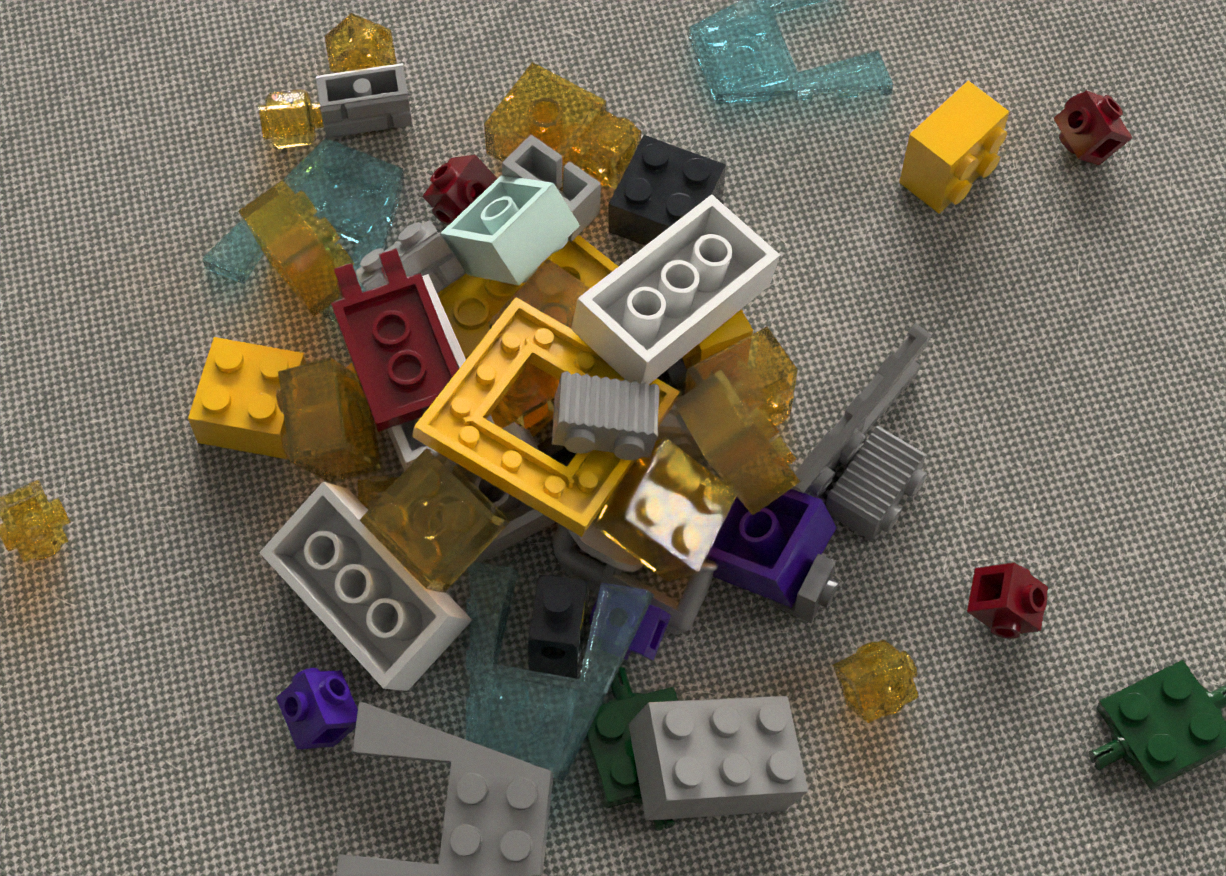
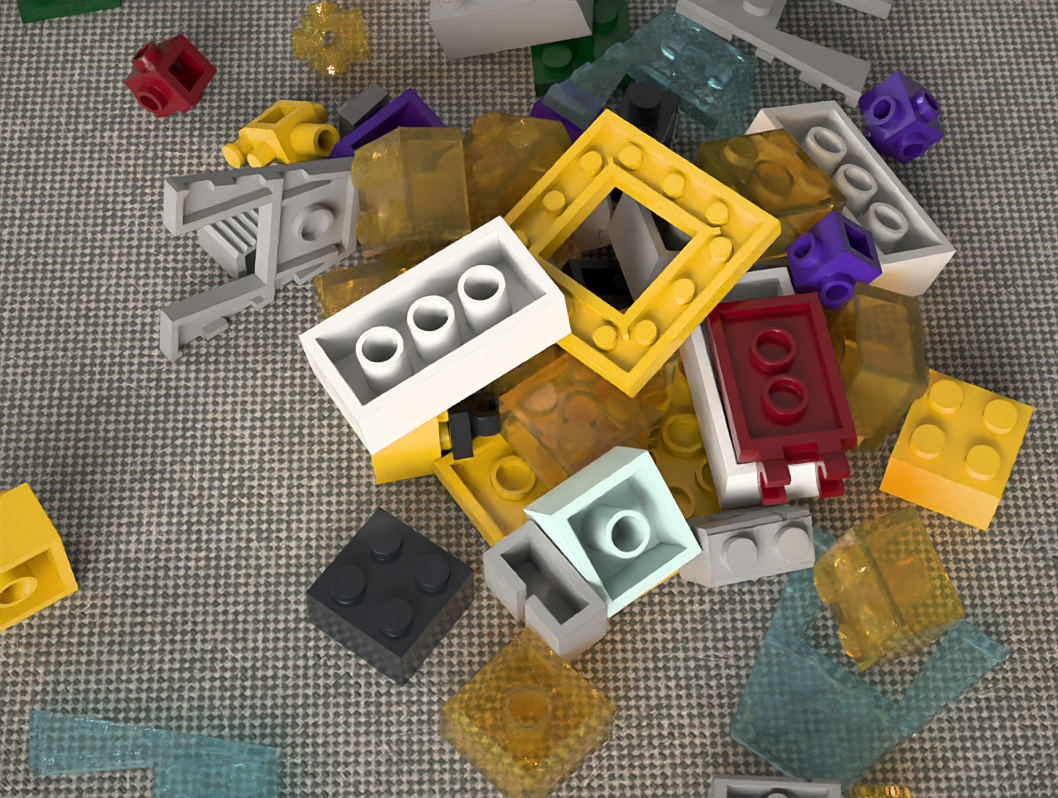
camera: 170 degrees left, 5 degrees down
(363, 468) = (833, 259): none -> dark purple brick
(457, 186) = (658, 656): dark red brick -> none
(605, 415) = (560, 202): light grey brick -> none
(608, 148) = (441, 671): clear yellow brick -> none
(880, 558) = (284, 134): none -> yellow piece

